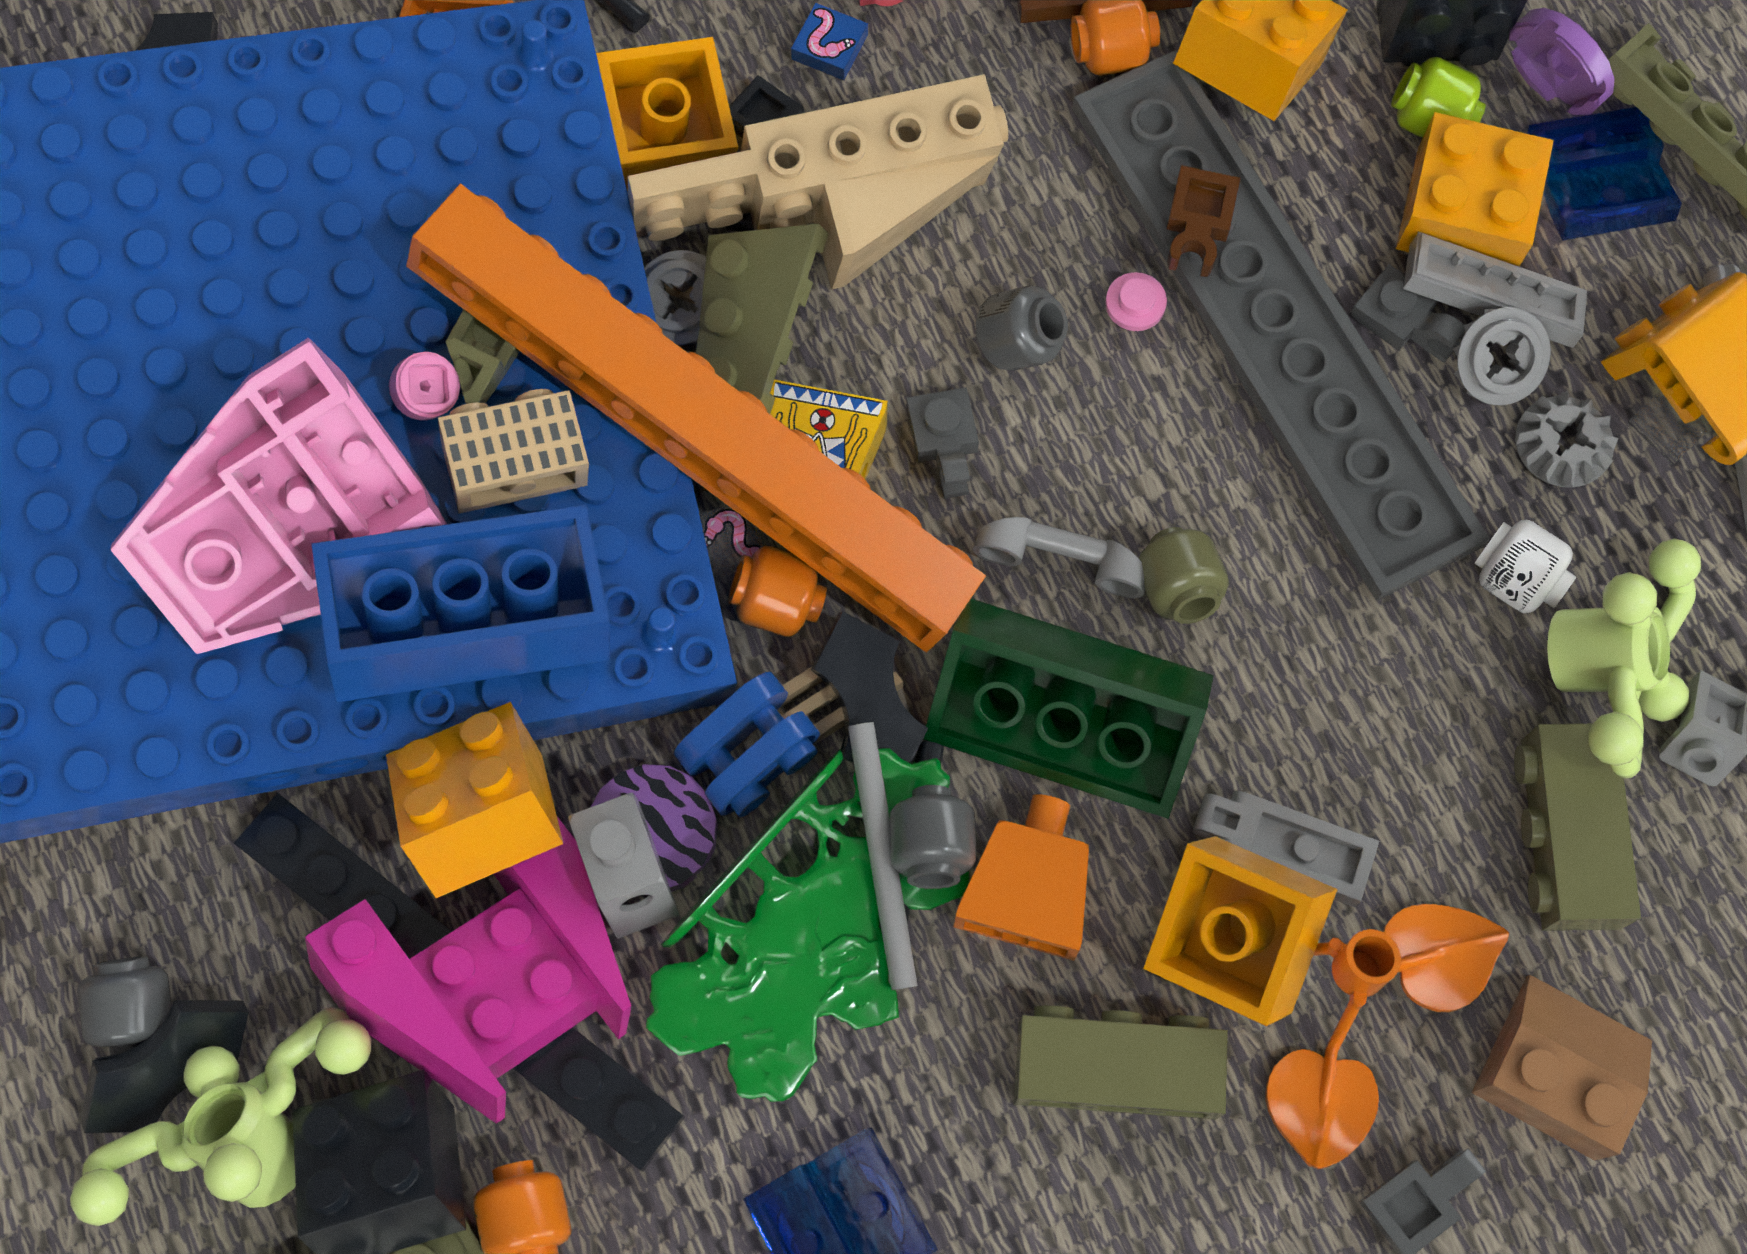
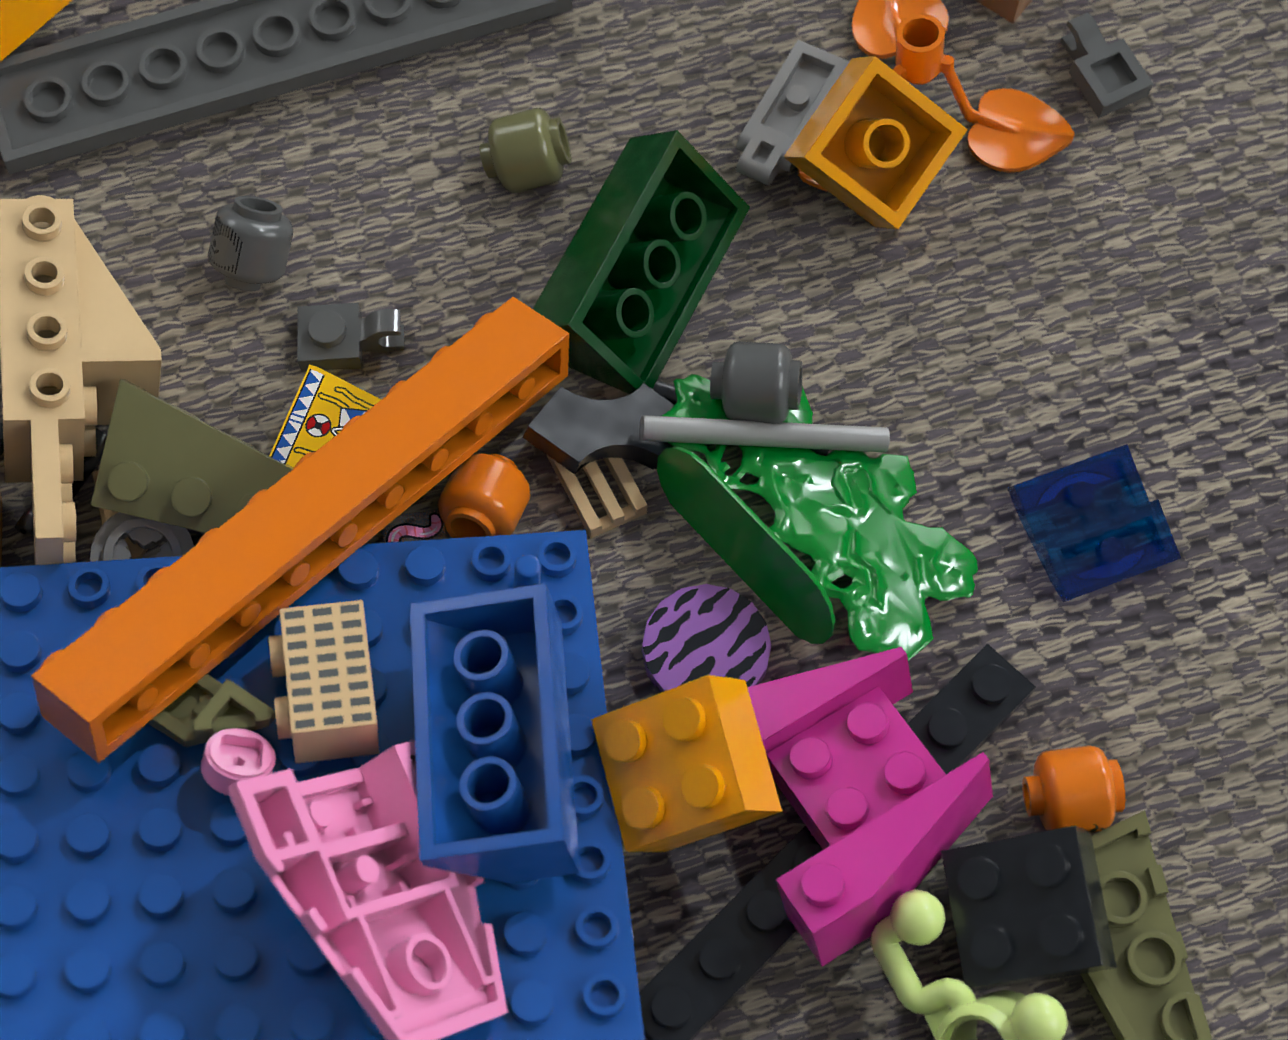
camera: 85 degrees left, 5 degrees down
(623, 864) = (746, 643): light grey torso -> none
(782, 748) = (675, 552): blue brick -> none
(1006, 539) = (507, 203): light grey bar -> none
(1030, 883) = (807, 309): orange torso -> none
(1121, 1064) = (973, 272): olive brick -> none
(1136, 301) = (236, 149): bright pink plate -> none
(1201, 214) = (167, 63): reddish brown plate -> none

